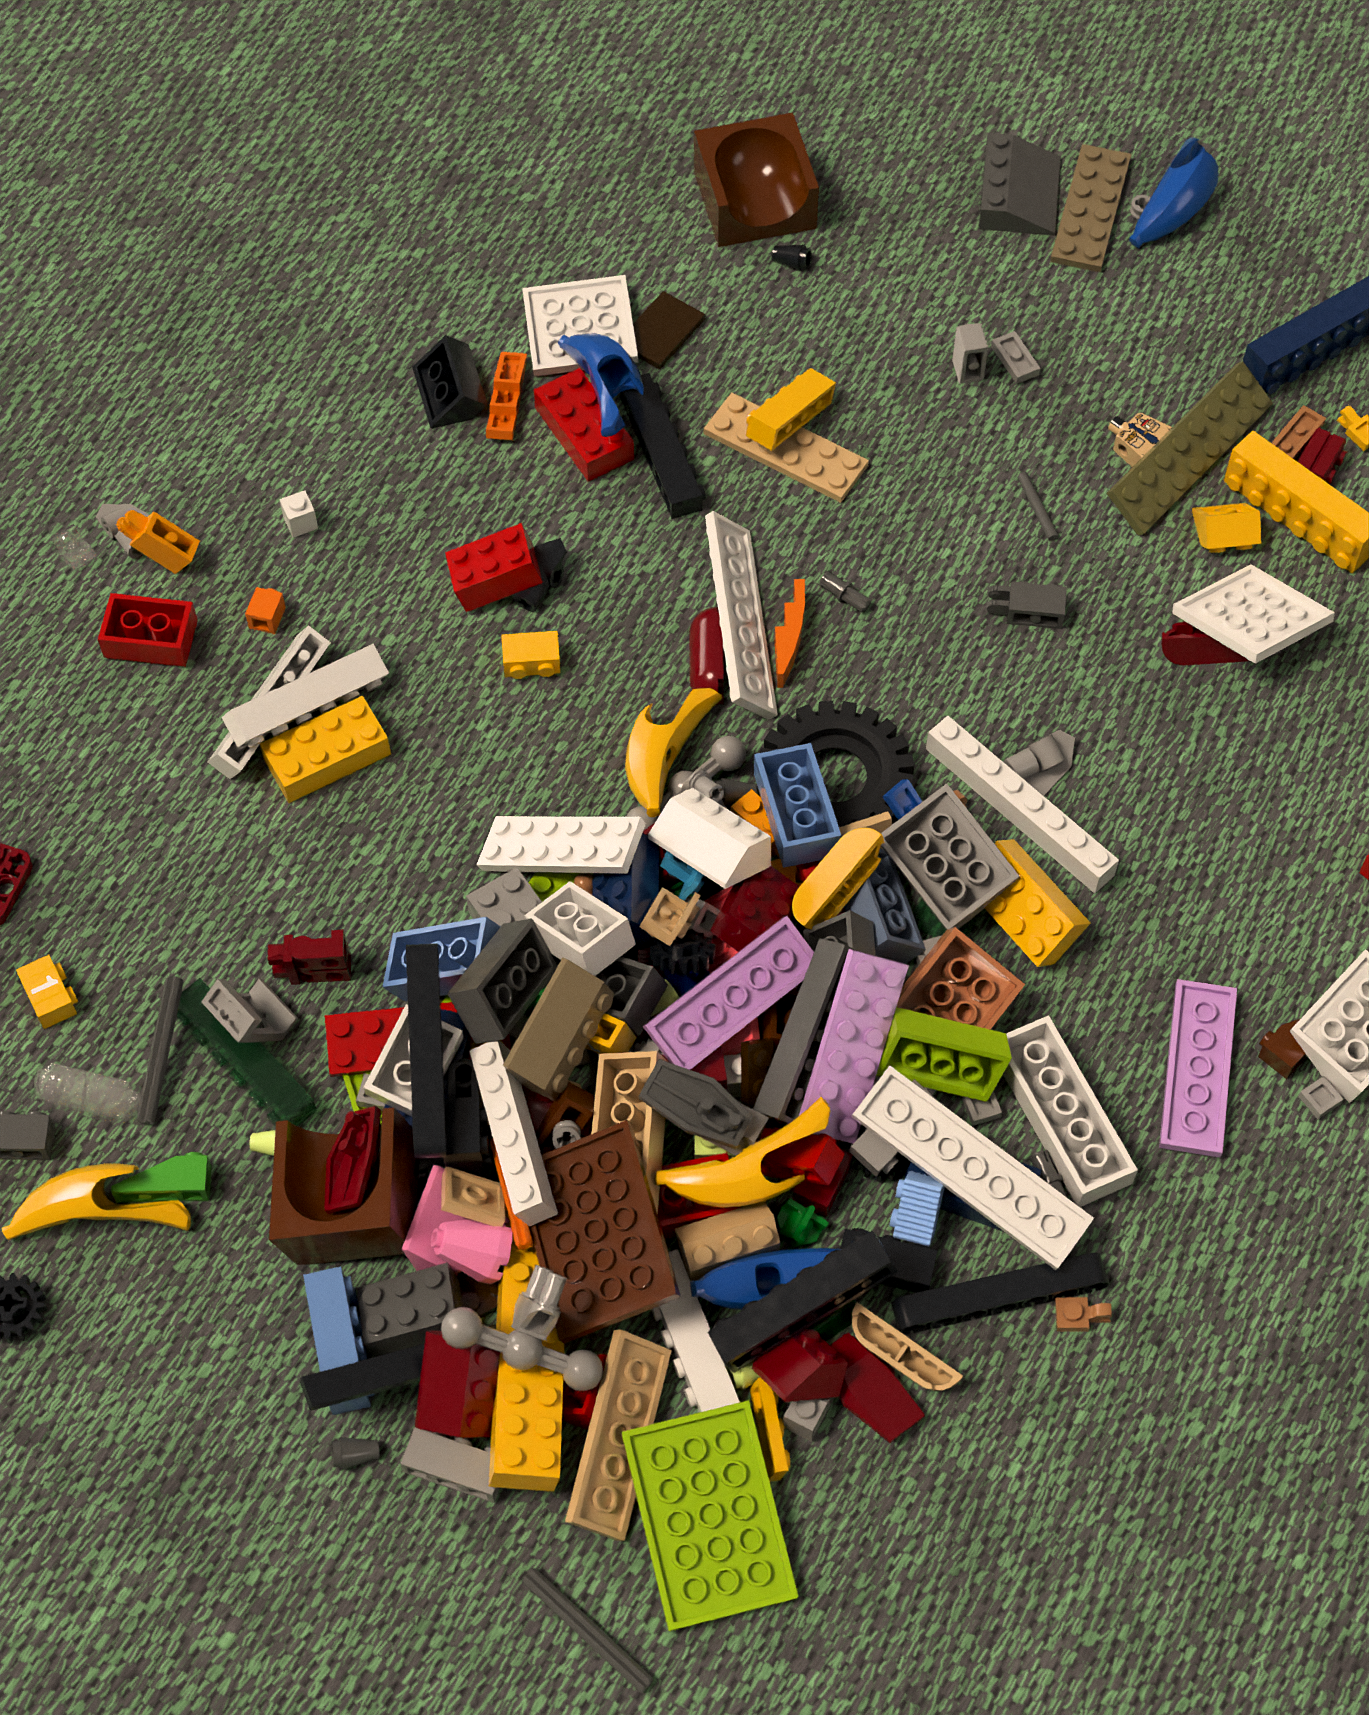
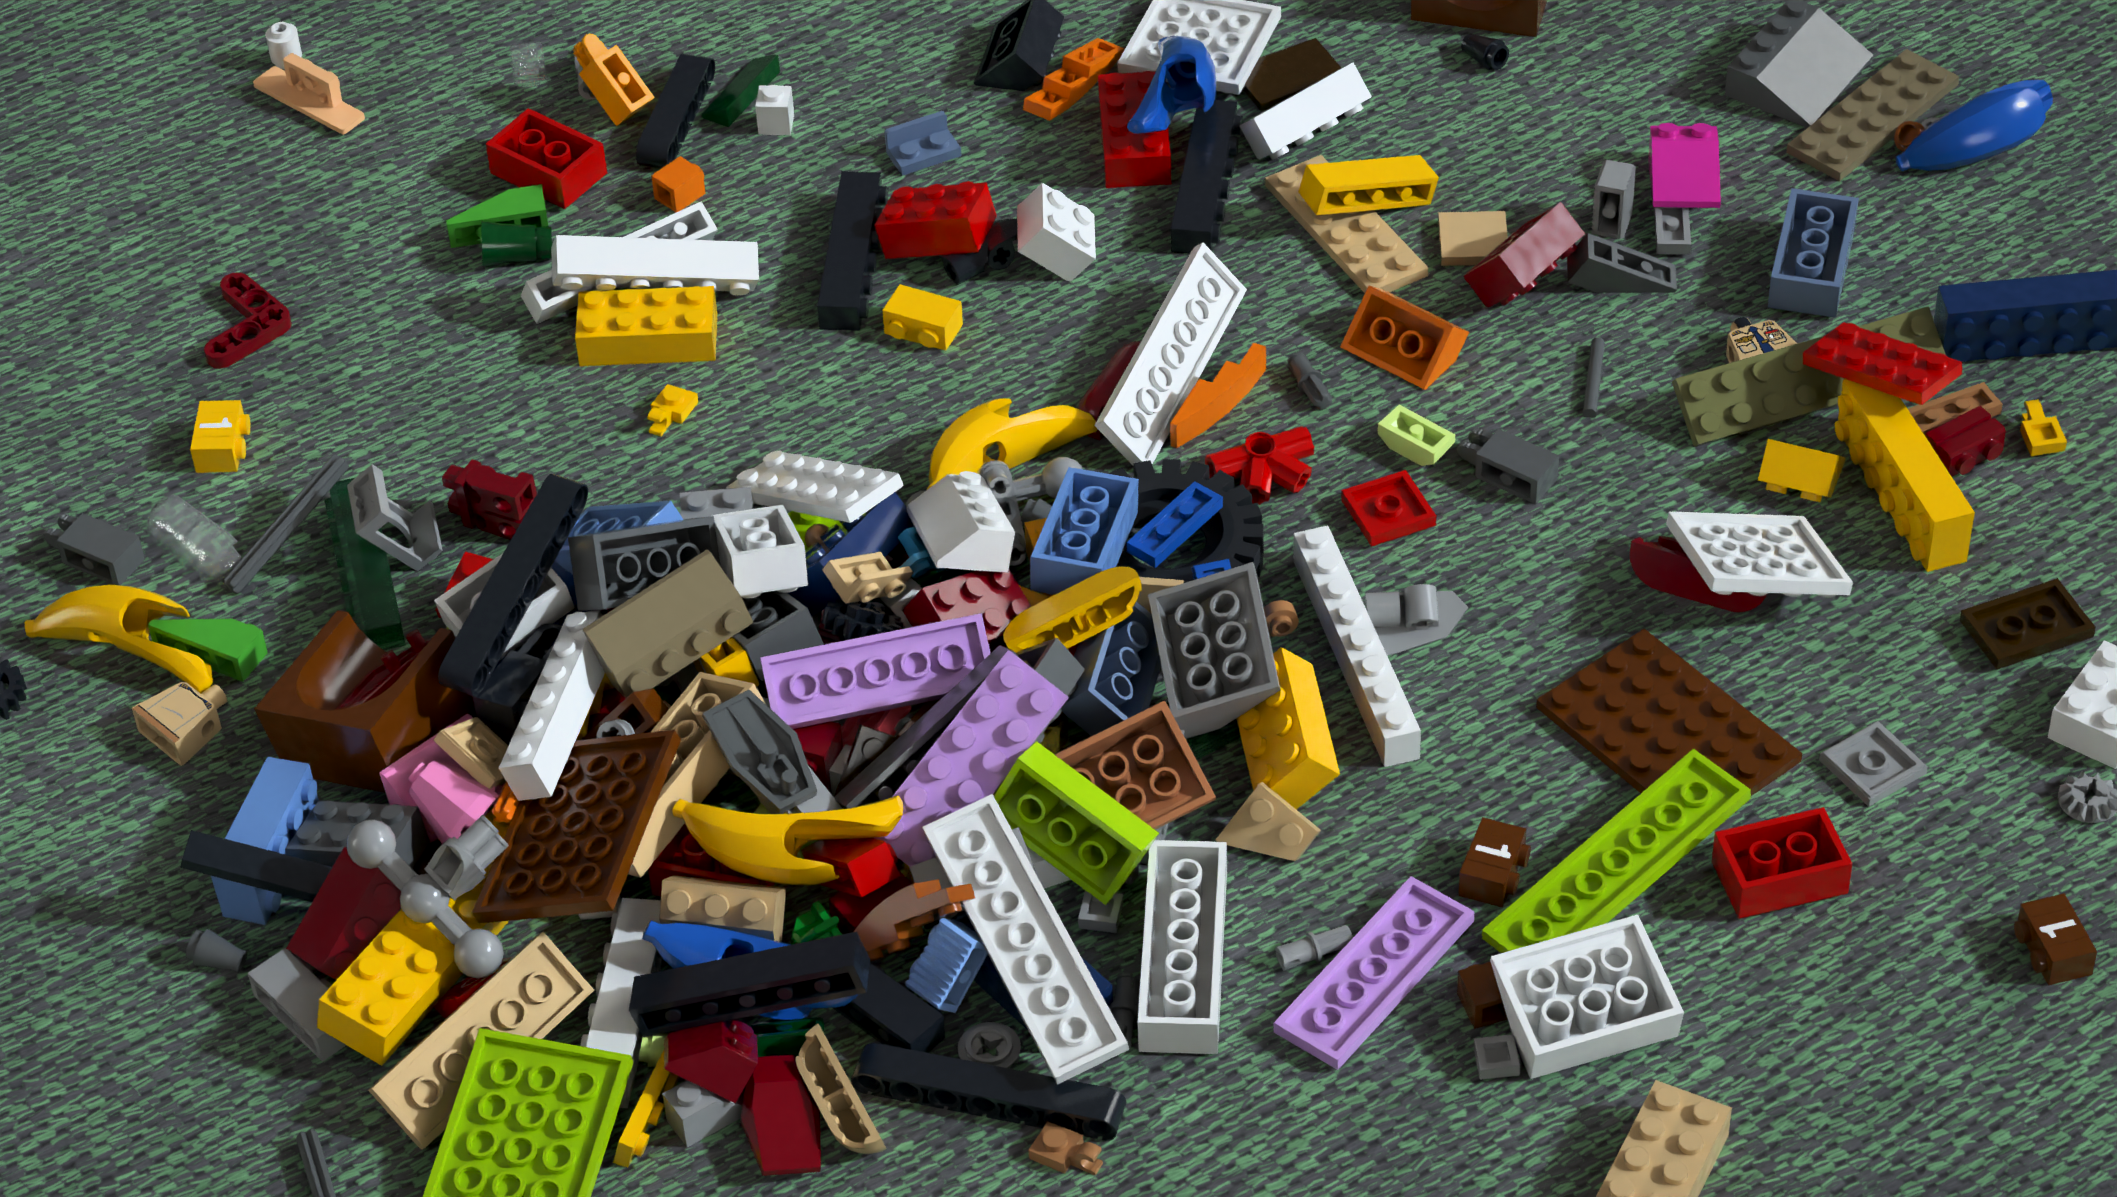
camera: 30 degrees right, 15 degrees down
(149, 692) = (512, 206): none -> bright green slope
(170, 716) = (514, 243): none -> dark green plant
(188, 1260) = (180, 719): none -> tan torso
(218, 544) = (675, 110): none -> black beam
(255, 503) = (742, 90): none -> dark green slope
(386, 810) = (671, 406): none -> yellow plate
(429, 499) = (921, 143): none -> sand blue bracket
(438, 617) = (851, 252): none -> black brick
(590, 541) = (1056, 232): none -> white brick
(701, 361) = (1306, 111): none -> white brick
(847, 763) = (1174, 524): none -> blue plate
(868, 678) = (1266, 460): none -> red piece
(873, 1182) = (905, 912): none -> dark orange slope
(882, 421) = (1470, 235): none -> tan tile
(890, 529) = (1403, 338): none -> orange slope
(939, 426) = (1525, 256): none -> brick
(951, 609) = (1414, 436): none -> yellowish green slope
(968, 677) = (1388, 508): none -> red plate
(970, 1244) = (993, 1036): none -> light grey gear
(999, 304) = (1684, 166): none -> dark pink slope
(1002, 409) = (1618, 269): none -> dark grey slope
(1057, 983) = (1269, 826): none -> tan wing
(1128, 217) = (1906, 133): none -> dark orange plate
(1130, 343) = (1813, 253): none -> sand blue brick
(1144, 1066) = (1312, 947): none -> light grey axle
(1223, 941) = (1493, 862): none -> reddish brown brick
(1252, 425) = (1882, 363): none -> red plate
(1267, 779) = (1650, 708): none -> reddish brown plate
(1308, 907) = (1623, 855): none -> lime plate

